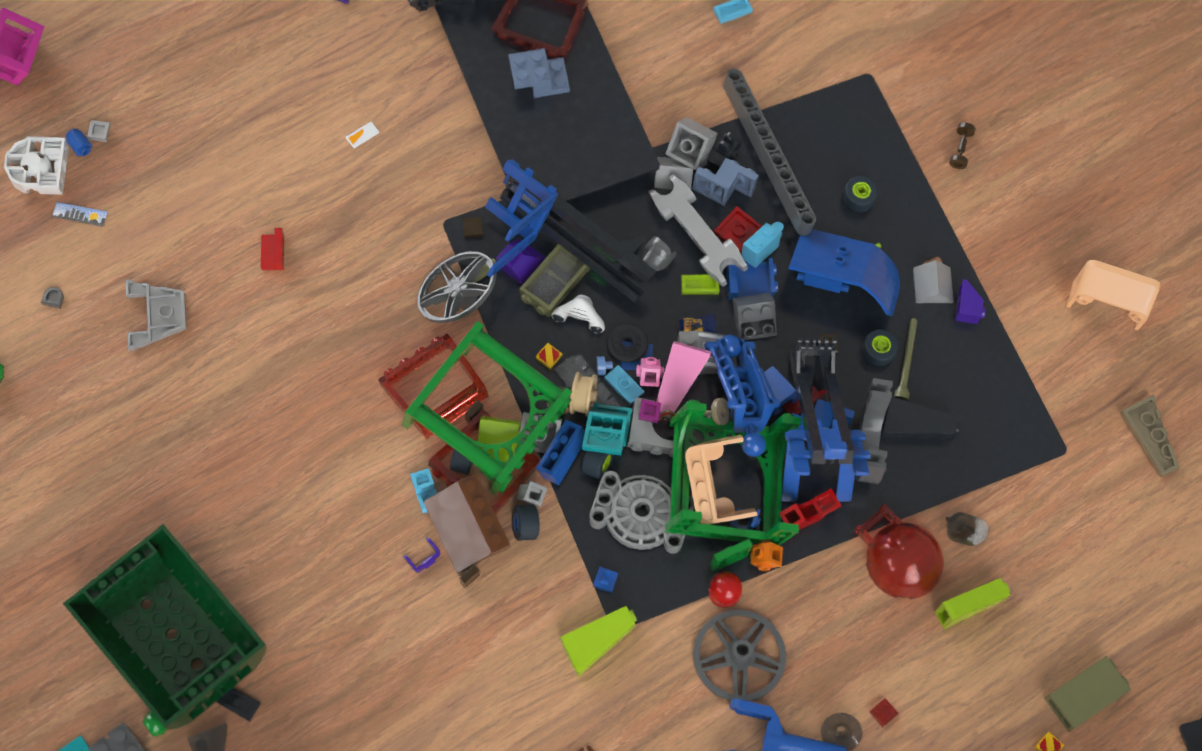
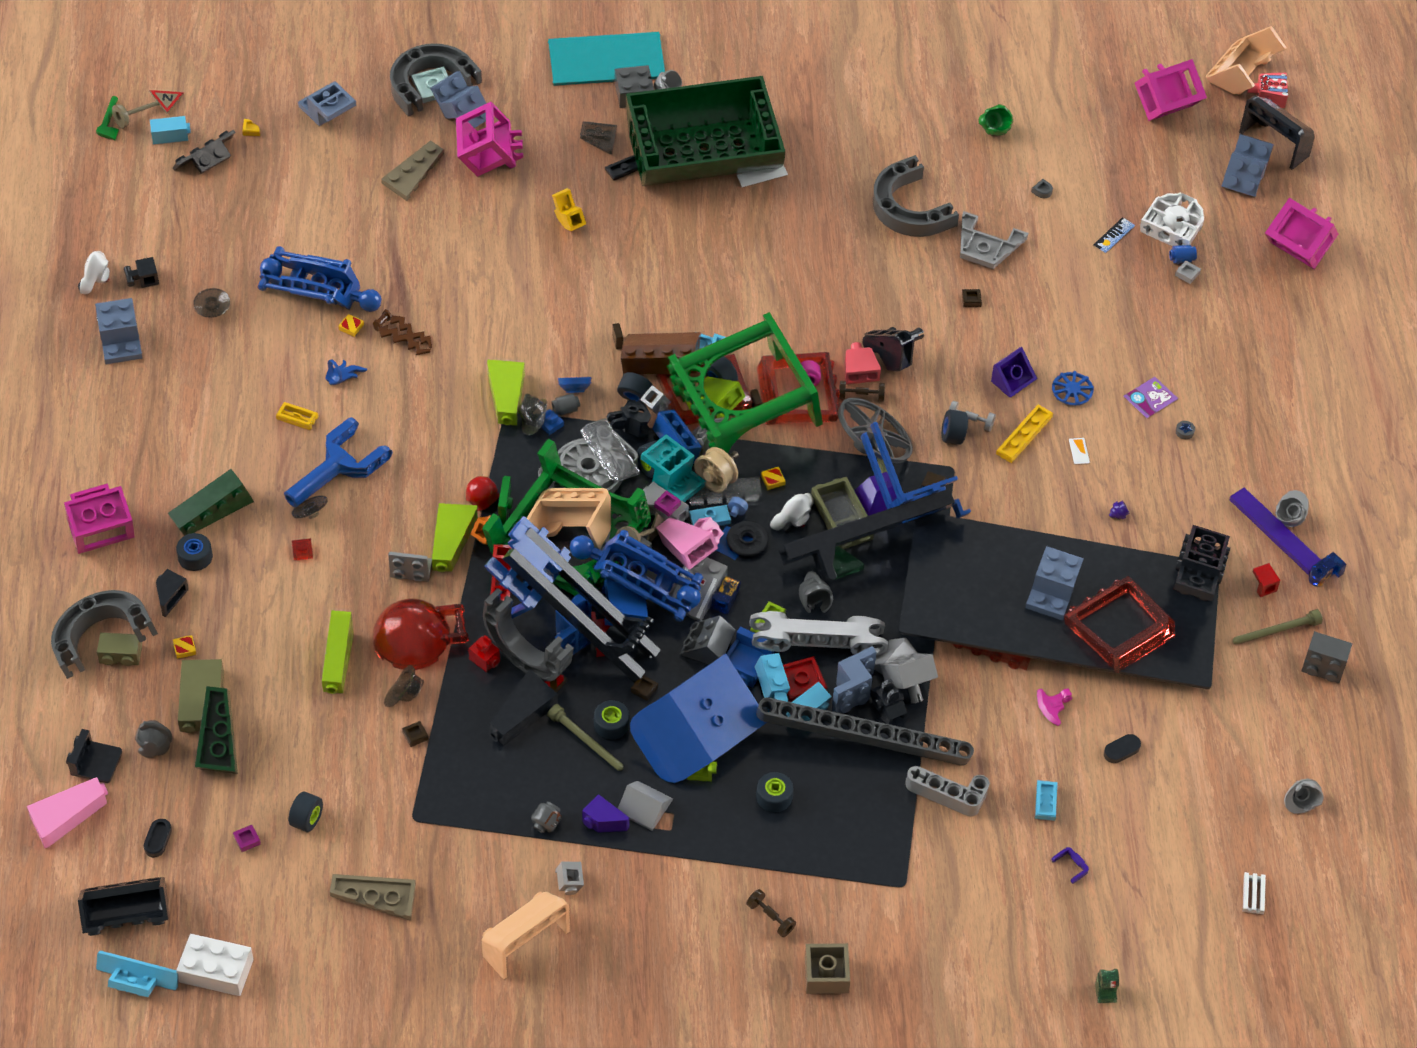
camera: 125 degrees right, 15 degrees down
(104, 718) = (668, 80): none -> light grey piece
(149, 429) = (904, 220): none -> dark grey piece
(233, 296) = (971, 298): none -> dark brown tile
(266, 105) = (1150, 397): none -> sticker
(272, 251) = (996, 340): red panel -> none
(291, 63) = (1185, 429): none -> dark grey tile
(295, 166) = (1072, 388): none -> blue wheel
(310, 218) = (1013, 373): none -> dark purple slope
(339, 713) = (567, 213): none -> yellow brick
(351, 320) = (893, 349): none -> black piece
(370, 182) = (1024, 433): none -> yellow tile
(375, 347) = (861, 365): none -> coral torso
(379, 212) = (972, 416): none -> light grey wheel
(397, 315) = (862, 391): none -> dark brown wheel
(405, 233) = (954, 427): none -> black wheel
(413, 383) = (813, 371): none -> dark pink head
(414, 74) = (1119, 510): none -> dark purple plate
(426, 563) = (650, 322): dark purple piece -> none
(546, 582) = (574, 384): none -> blue piece
(563, 503) = (630, 419): none -> black hinge
(579, 576) = (565, 404): none -> dark grey brick
(611, 595) = (532, 413): none -> clear smoke piece
(613, 499) = (609, 450): none -> clear windscreen
(640, 43) = (1052, 705): none -> dark pink piece
(739, 655) = (422, 477): dark grey wheel -> none
(765, 60) = (918, 776): none -> light grey beam
(765, 207) = (814, 697): none -> medium azure brick
(782, 589) = (451, 534): none -> lime slope
(843, 601) = (410, 566): none -> light grey bracket
(889, 484) = (484, 653): none -> red brick
(983, 83) = (827, 968): none -> dark tan brick
(993, 497) = (415, 734): none -> dark brown tile
(1000, 345) = (546, 817): none -> dark grey head
(1036, 300) = (569, 871): none -> light grey brick
(1128, 640) = (216, 737): none -> dark green wedge
(1129, 530) = (305, 811): none -> black wheel
(1155, 703) = (153, 738): none -> dark grey helmet
(1180, 565) = (246, 838): none -> magenta plate

